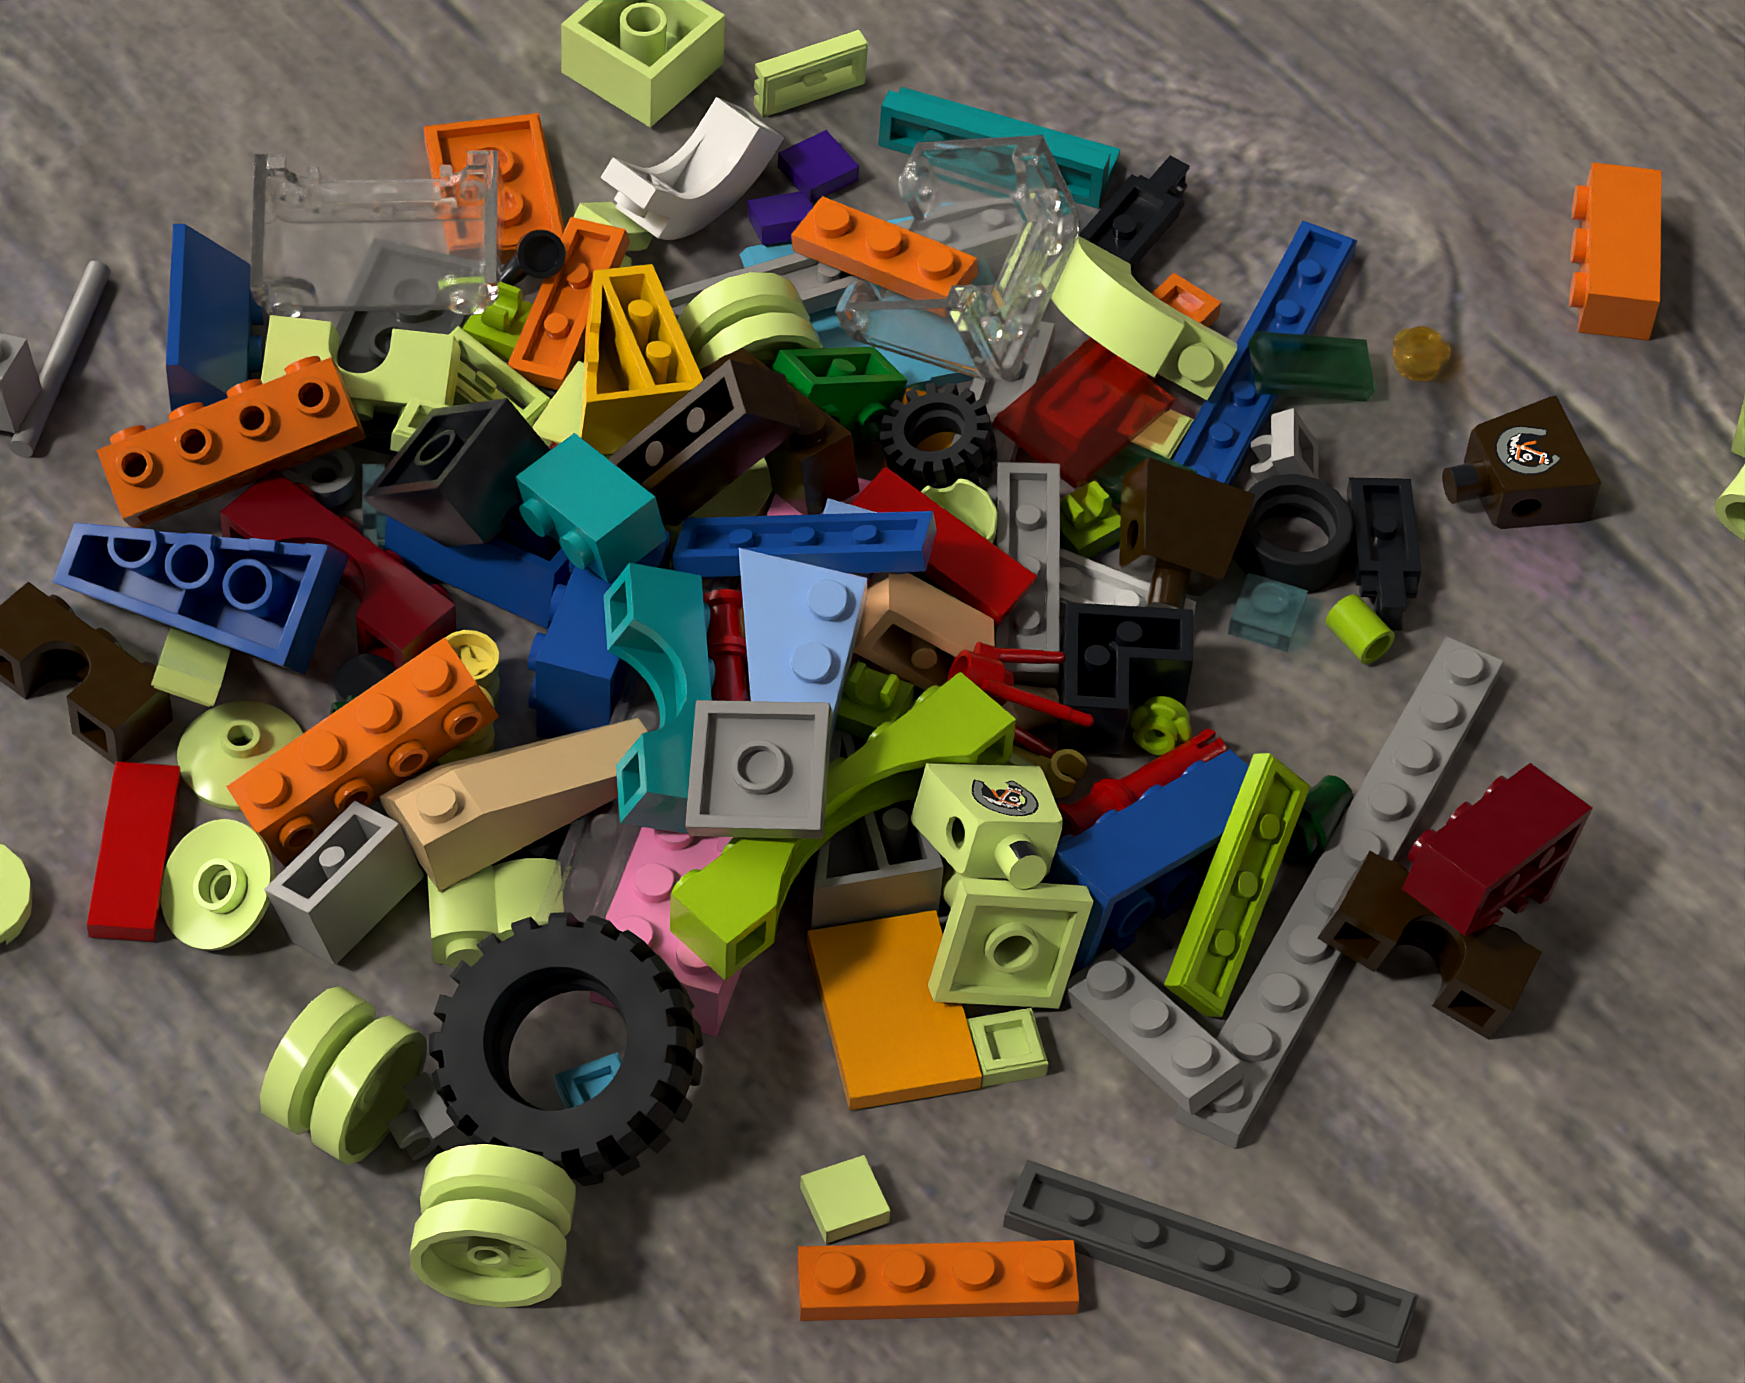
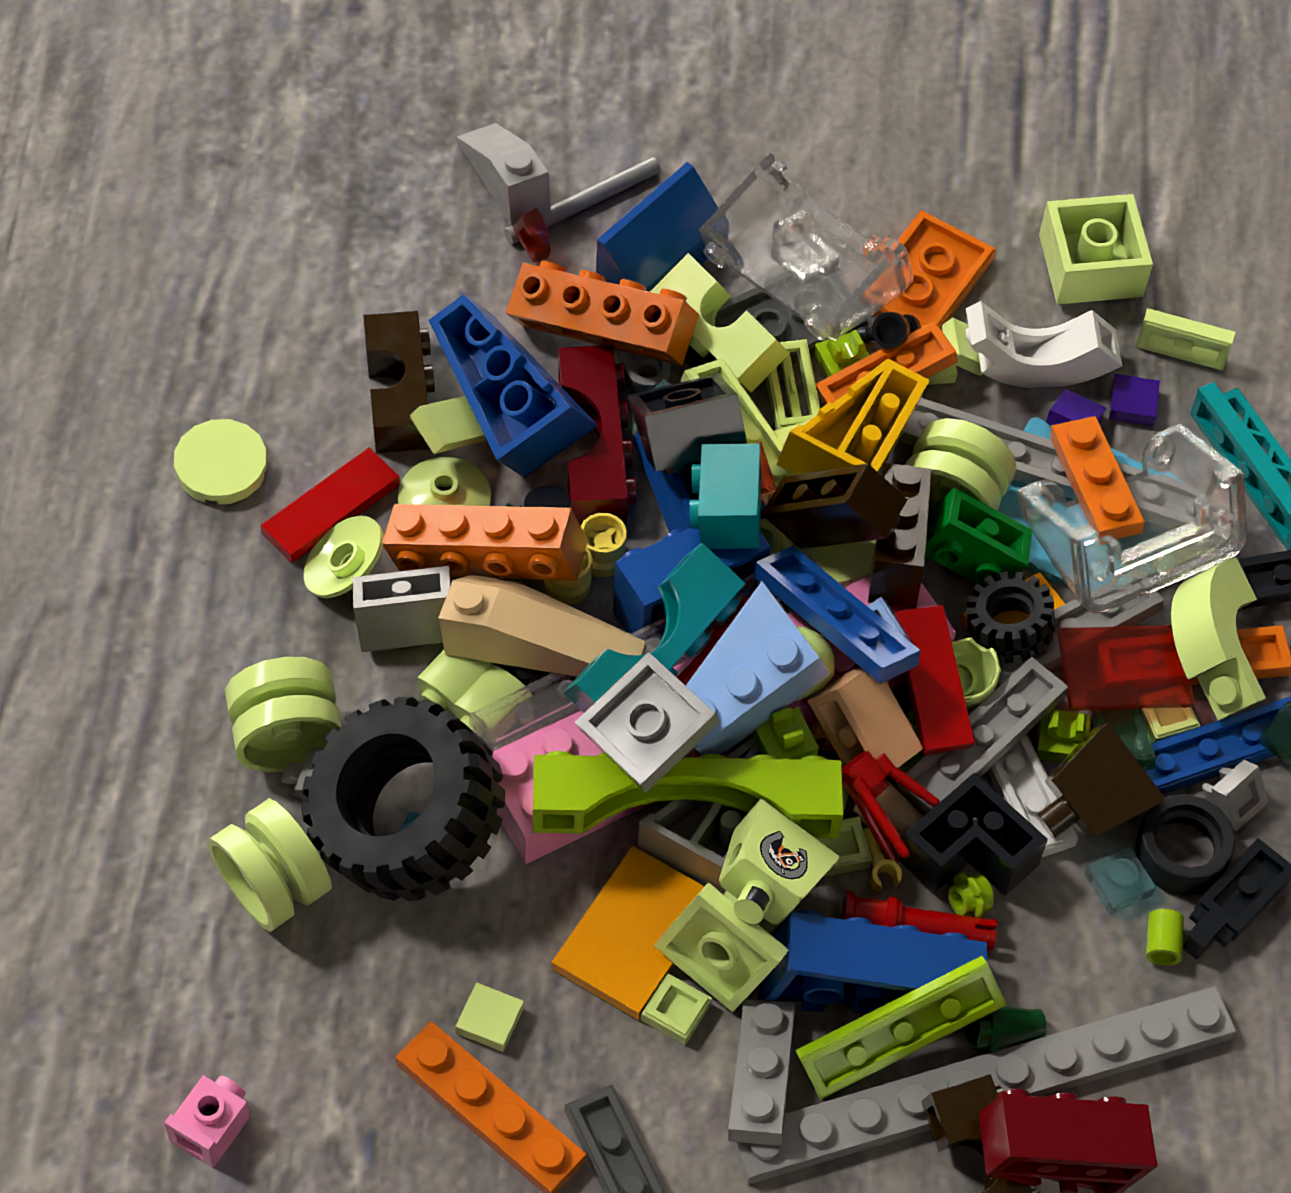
camera: 45 degrees right, 5 degrees up
(57, 423) = (533, 236): none -> clear red tile
(369, 240) = (801, 250): none -> clear bracket

